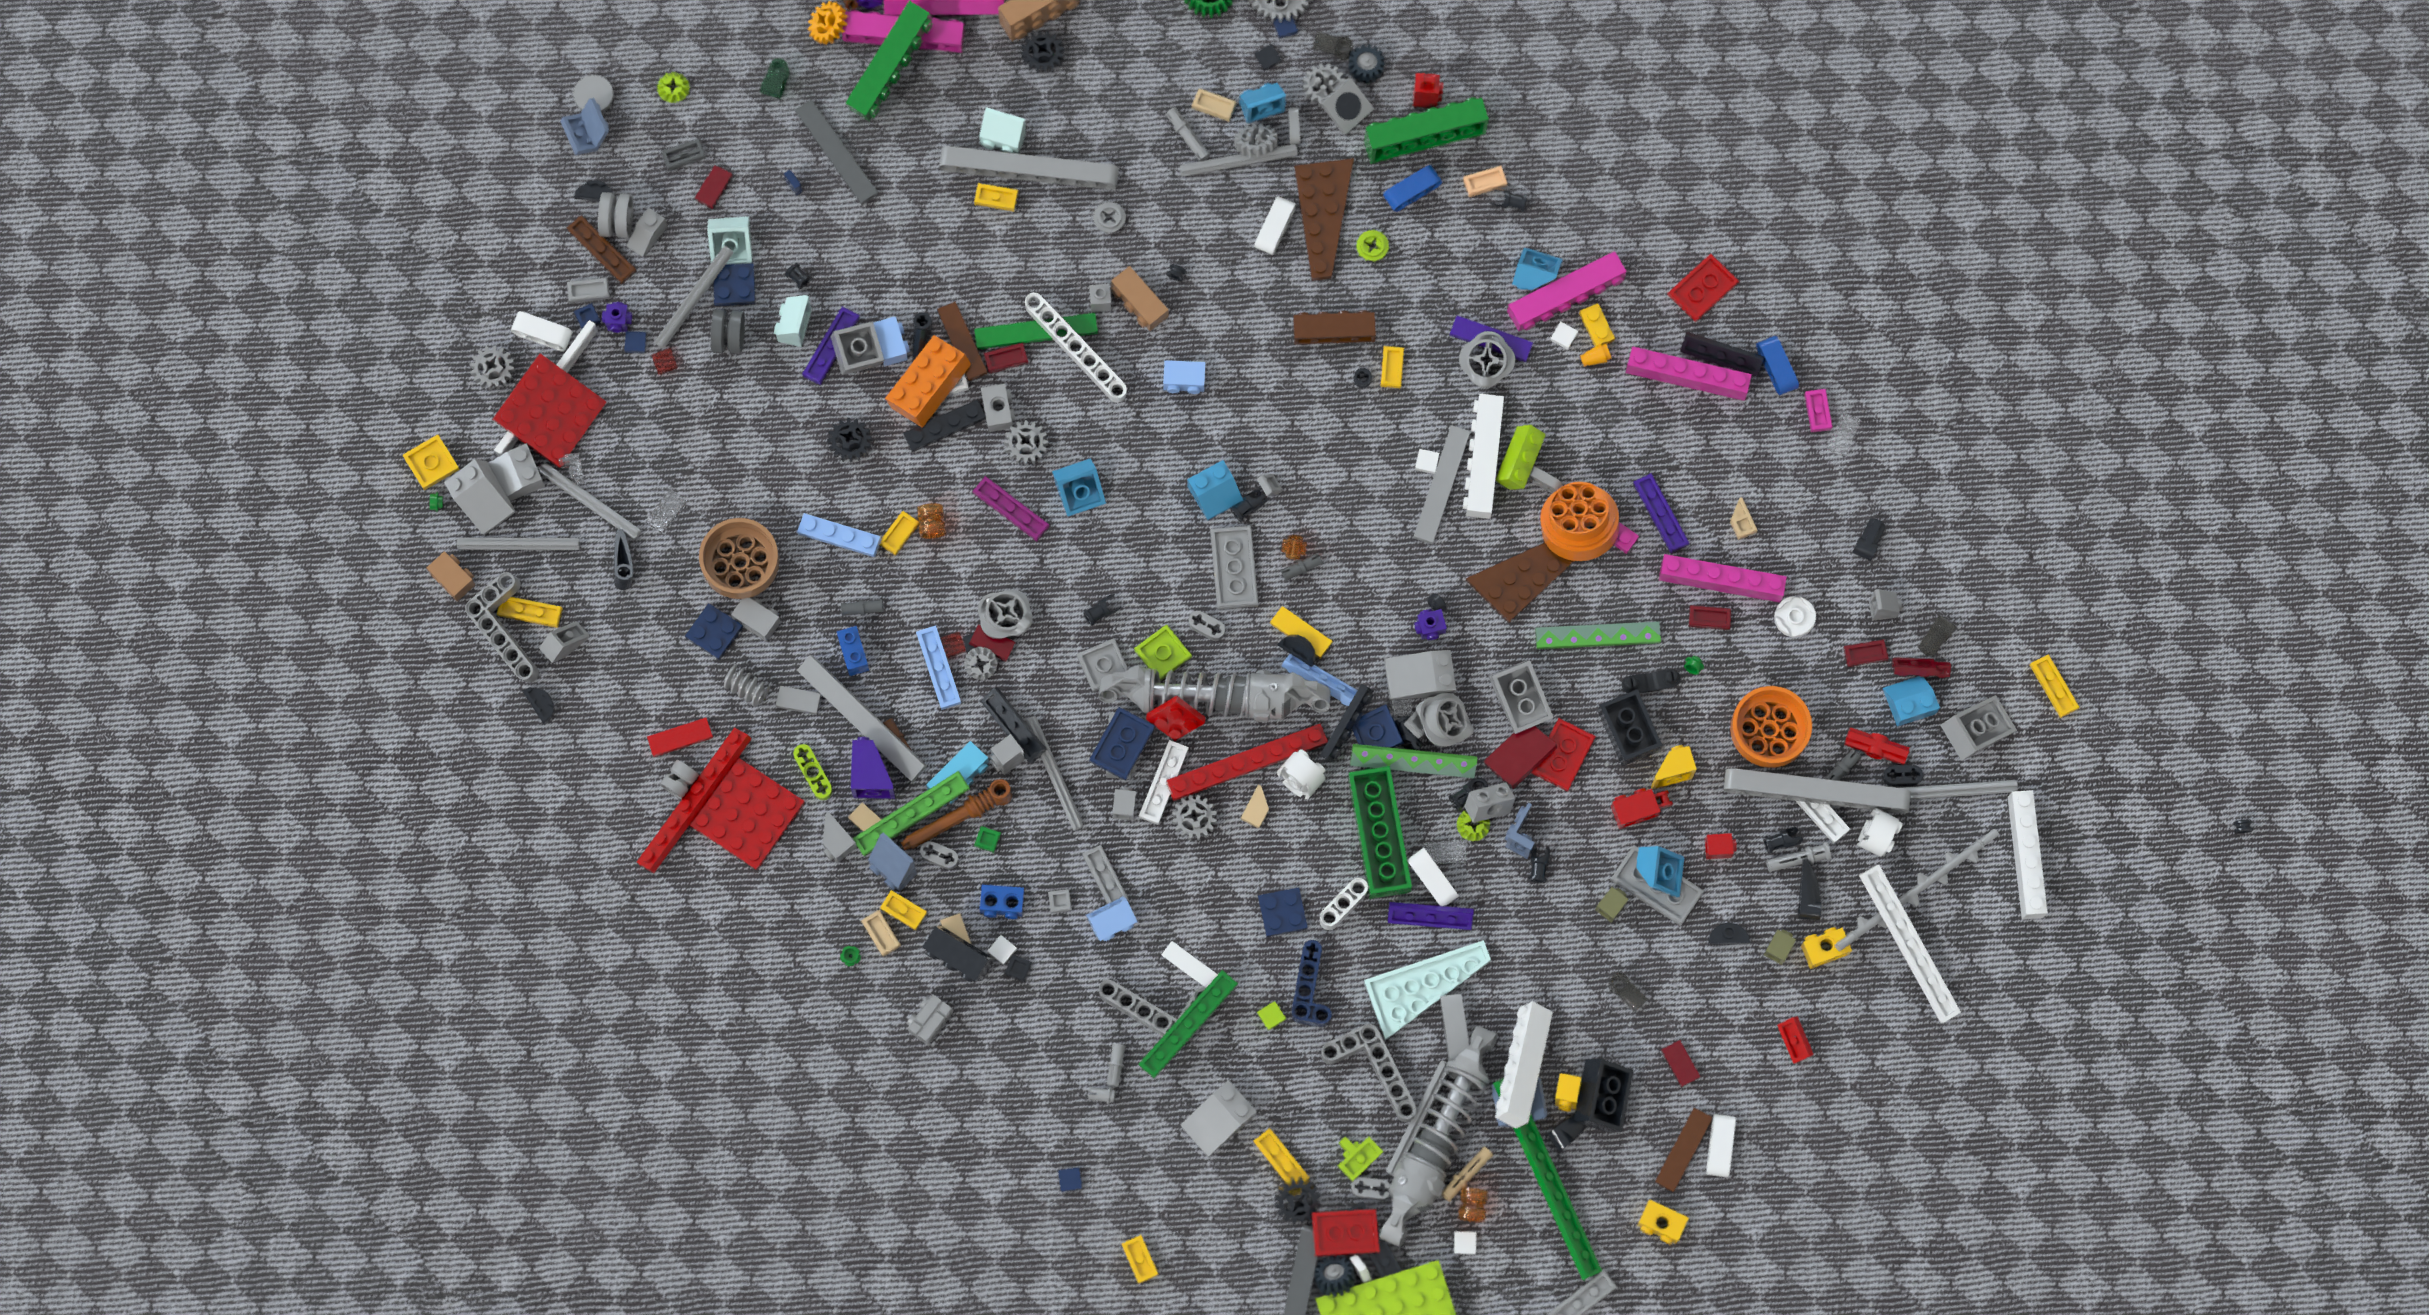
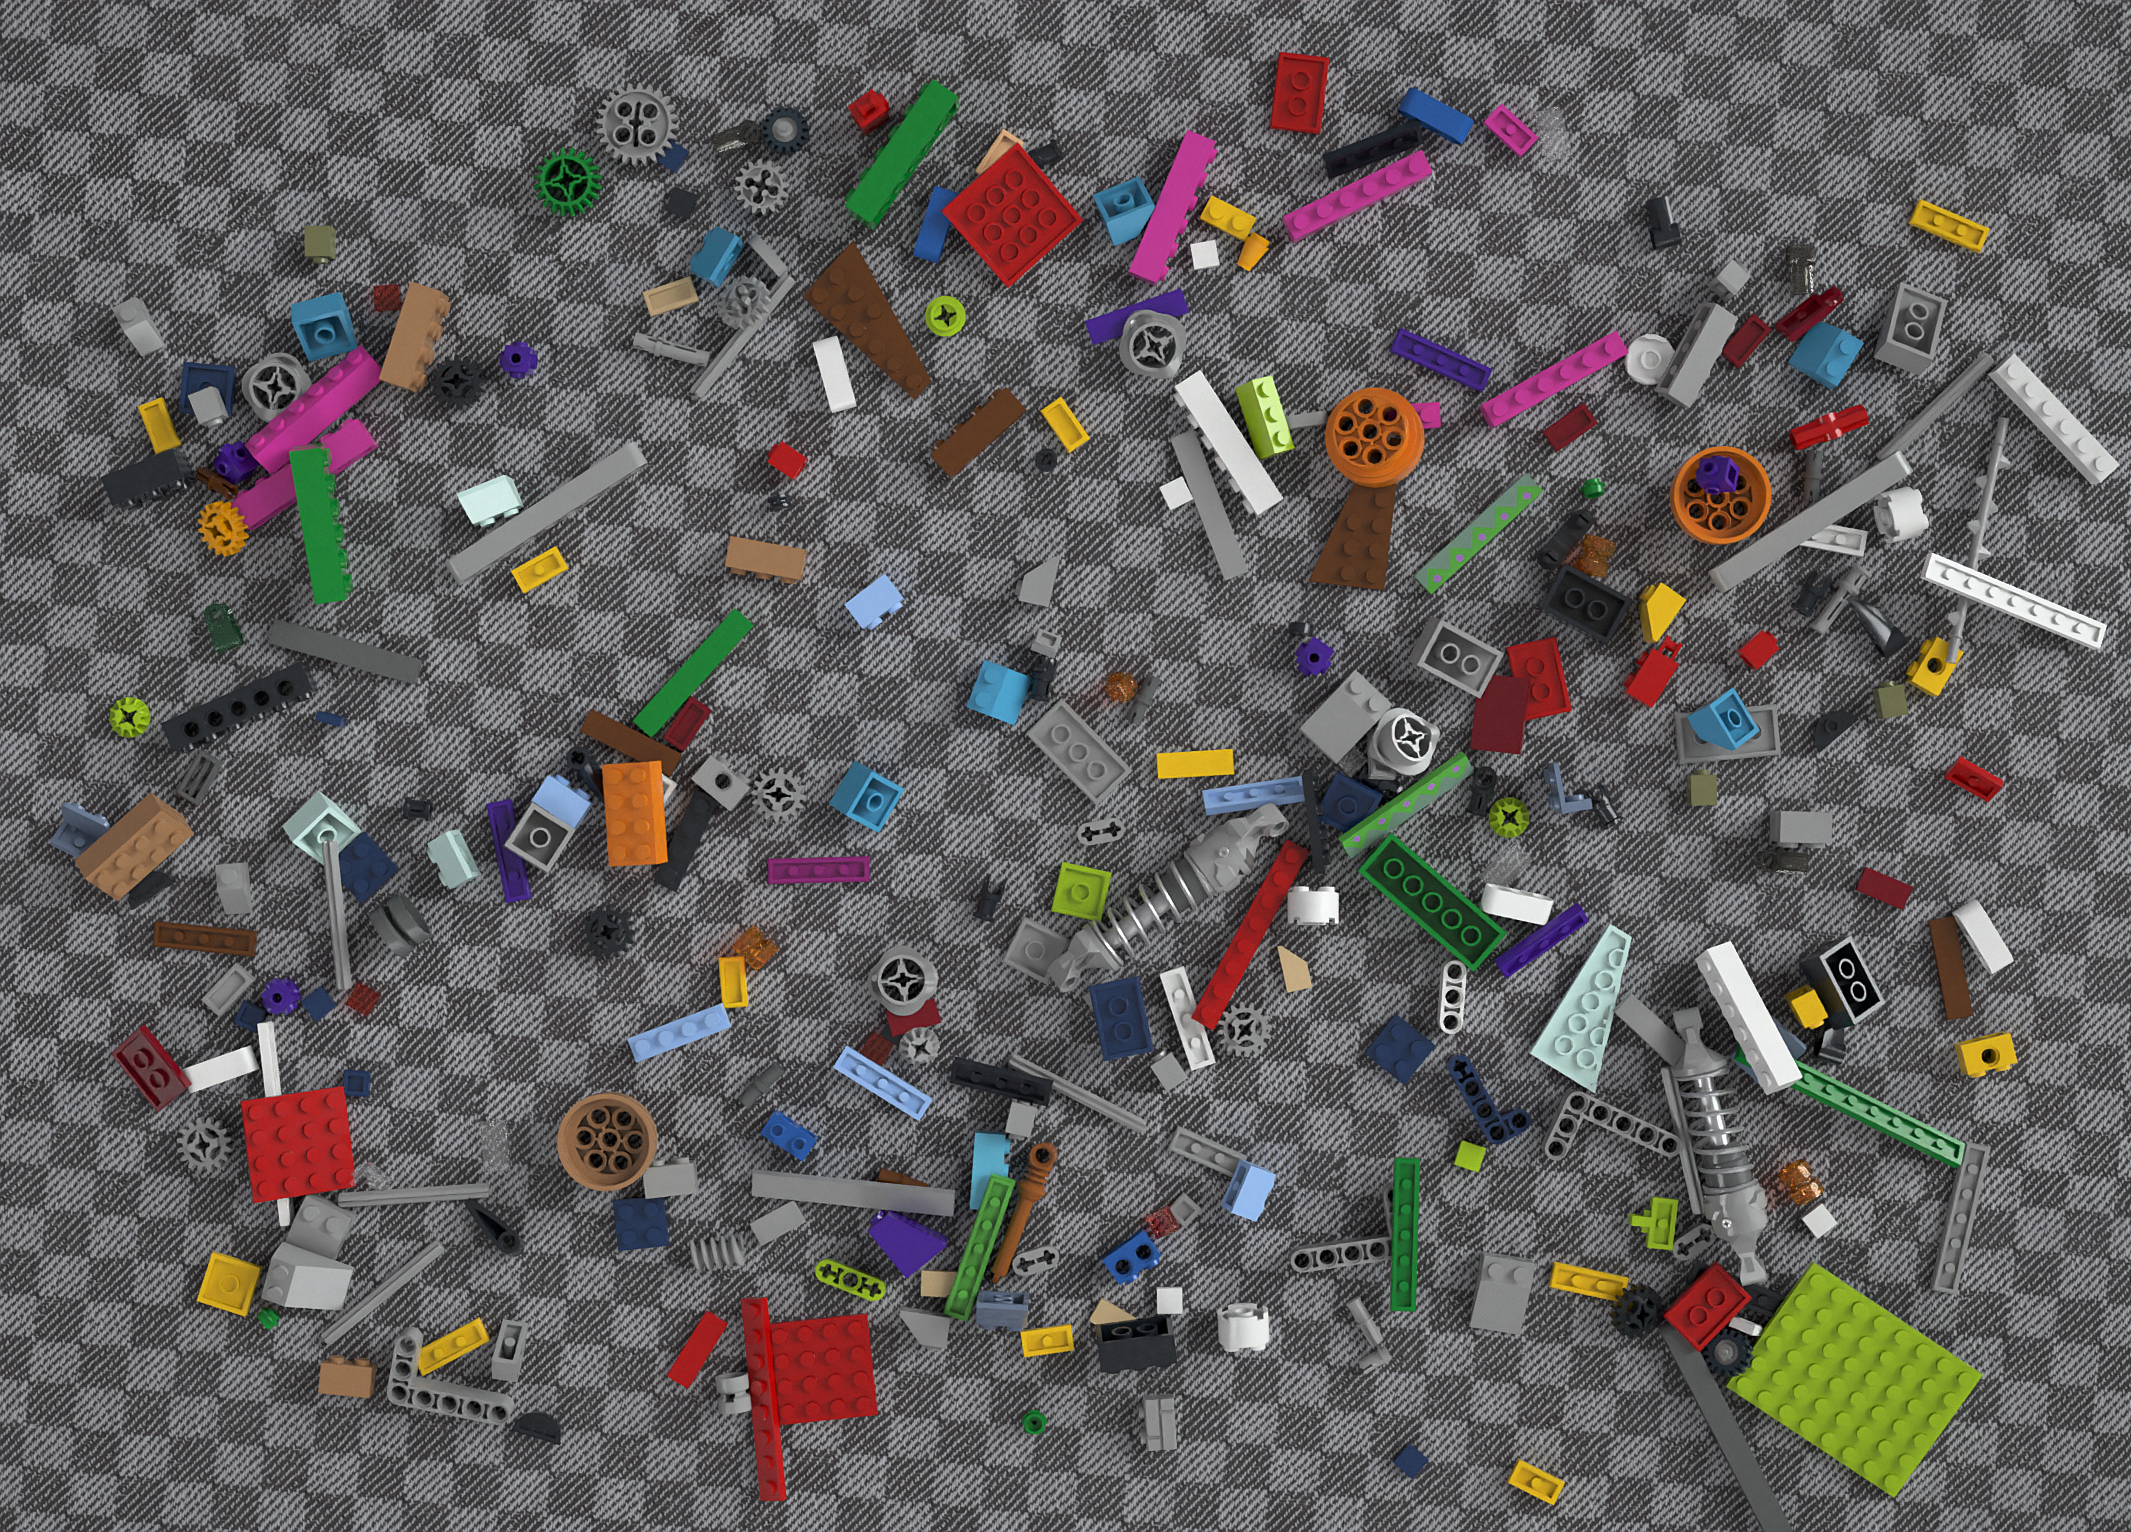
camera: 35 degrees left, 15 degrees up
(500, 296) = (151, 1068): none -> dark red tile
(593, 87) = (57, 785): light grey tile -> none
(609, 158) = (134, 846): none -> medium nougat brick
(615, 215) = (189, 898): light grey wheel -> none
(615, 407) = (357, 1082): none -> dark blue tile
(697, 114) = (177, 728): none -> black brick
(713, 187) = (257, 786): dark red tile -> none
(881, 933) = (1043, 1377): tan tile -> none
(987, 839) = (1067, 1207): green tile -> none
(1018, 968) = (1198, 1304): black tile -> none
(1036, 999) = (1243, 1327): none -> white brick
(1039, 896) = (1162, 1222): none -> clear red tile
(1073, 338) = (735, 666): white beam -> none
(1090, 67) = (527, 364): none -> dark purple brick
(1100, 298) = (728, 590): light grey brick -> none
(1109, 209) = (659, 490): light grey gear -> none
(1175, 718) = (1151, 953): red plate -> none
(1189, 964) = (1354, 1169): white sticker -> none
(1202, 252) = (787, 460): none -> red brick
(1295, 445) = (1038, 584): none -> light grey slope
(1299, 647) = (1207, 783): black plate -> none
(1347, 106) = (803, 192): light grey tile -> none
(1449, 1191) = (1772, 1125): tan pin -> none
(1463, 217) = (1012, 215): none -> red plate
(1489, 802) = (1511, 787): light grey brick -> none
(1656, 976) = (1802, 827): none -> light grey brick
(1662, 704) = (1595, 556): none -> clear orange wheel
(1742, 521) = (1524, 303): tan tile -> none
(1778, 708) = (1717, 475): none -> dark purple brick
(1826, 634) = (1696, 354): none -> light grey brick
(1903, 780) = (1878, 439): black beam -> none

